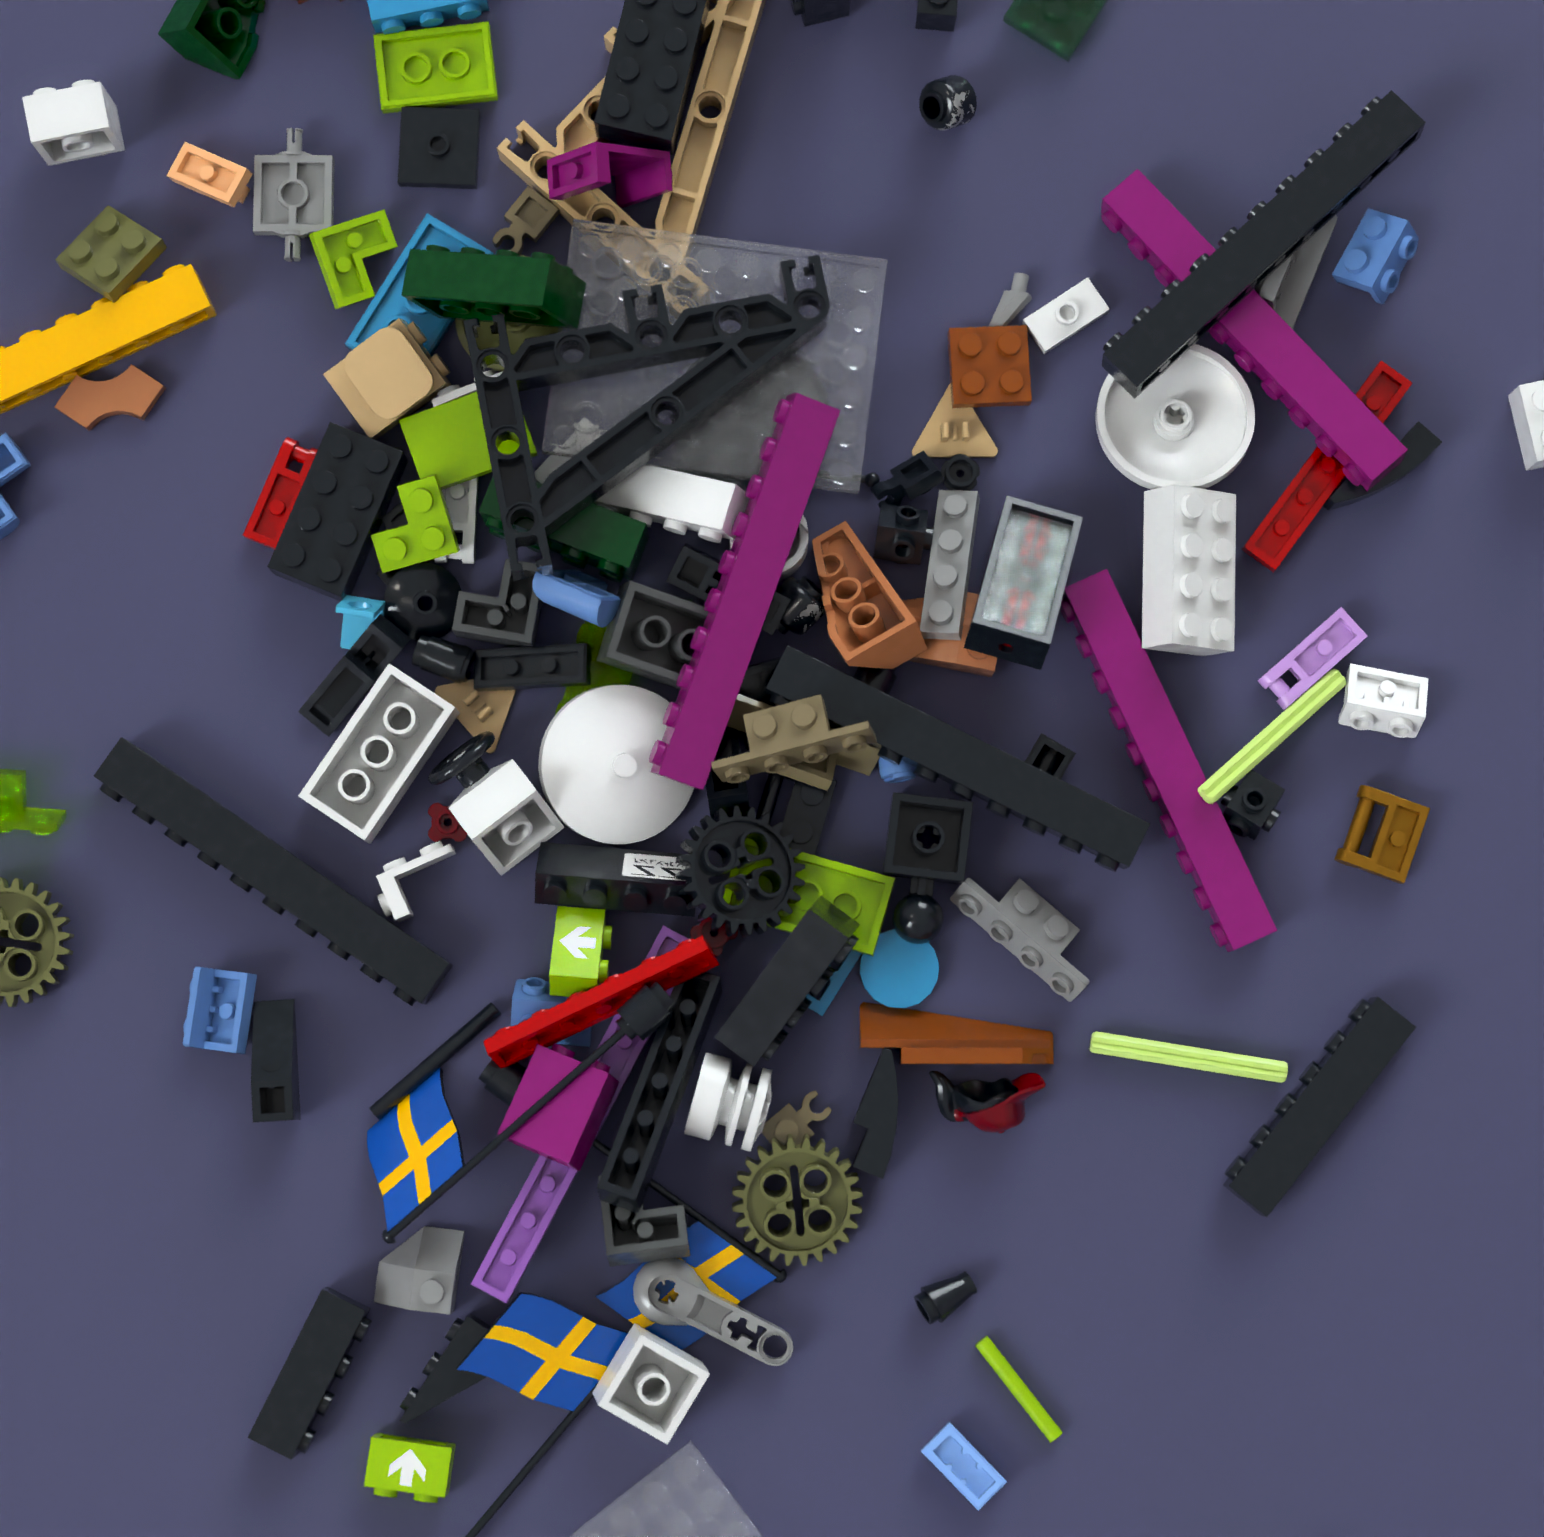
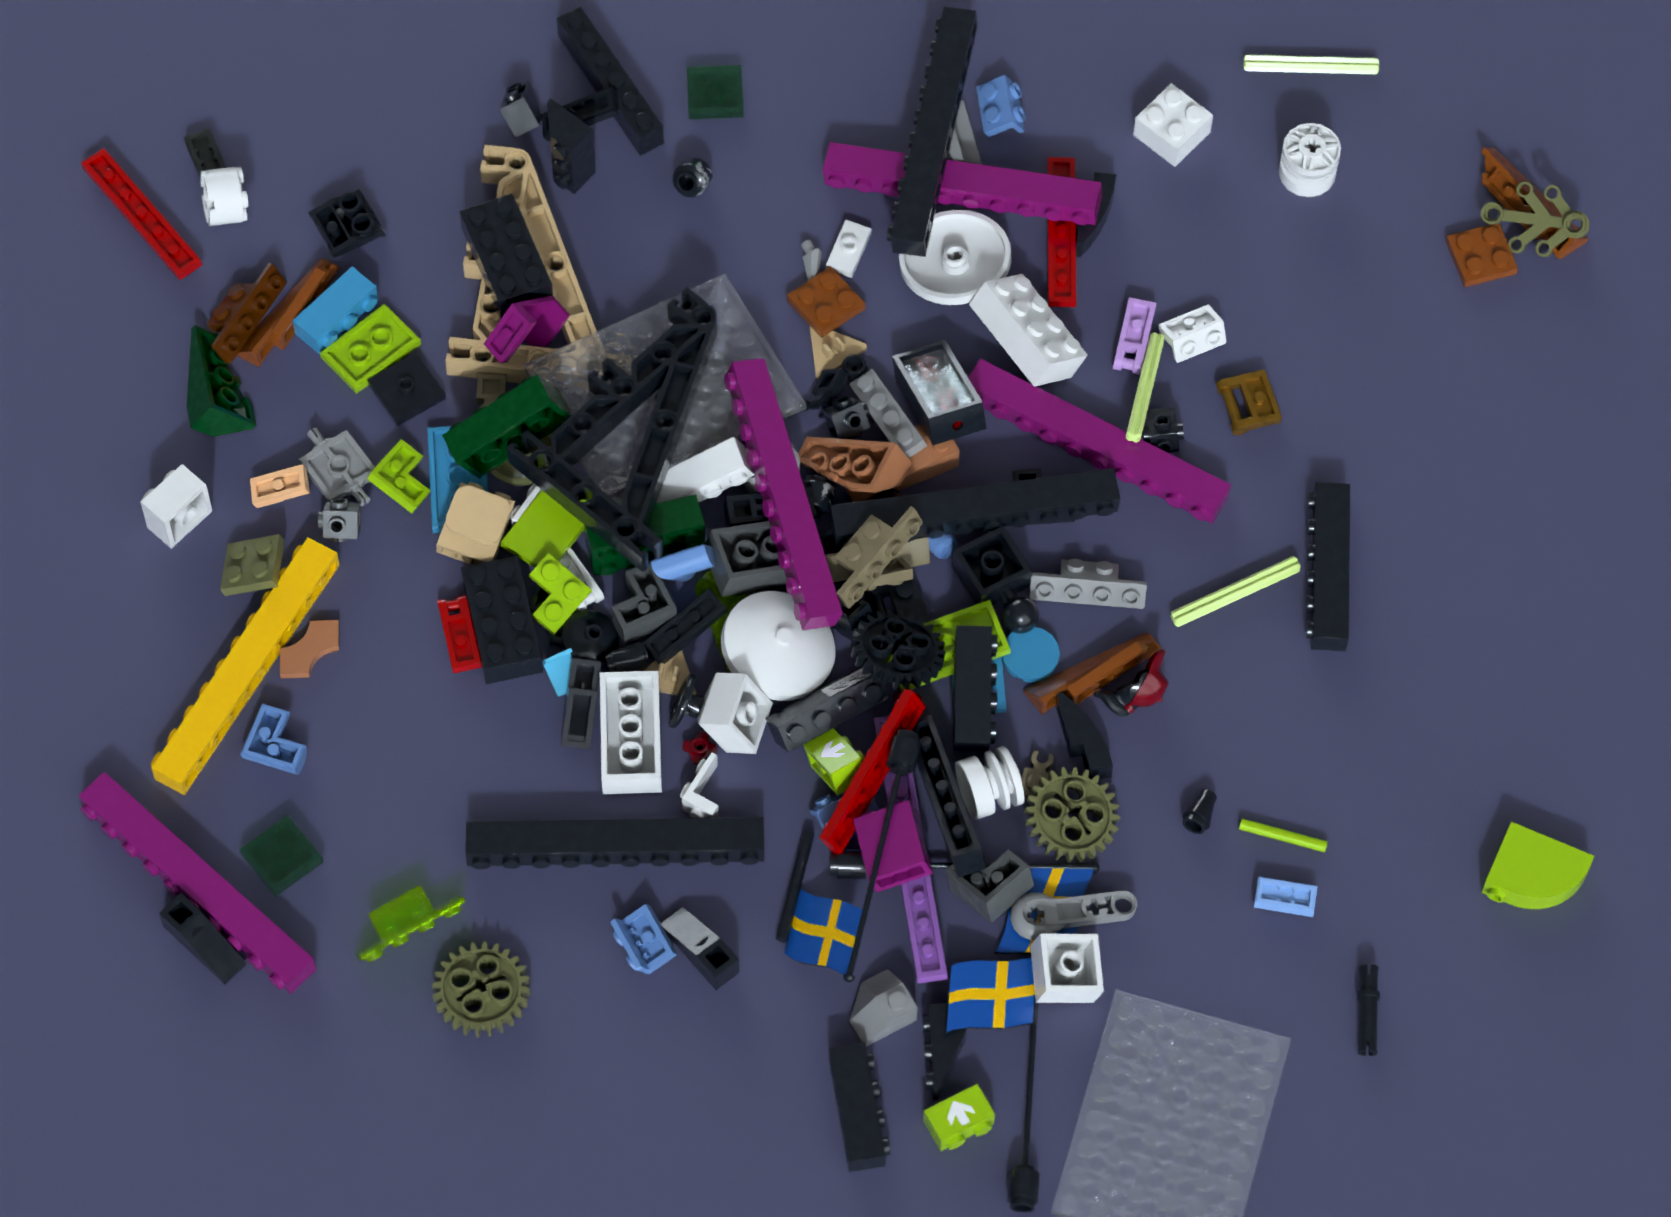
camera: 35 degrees left, 20 degrees down
(246, 266) = (340, 520): none -> dark grey brick

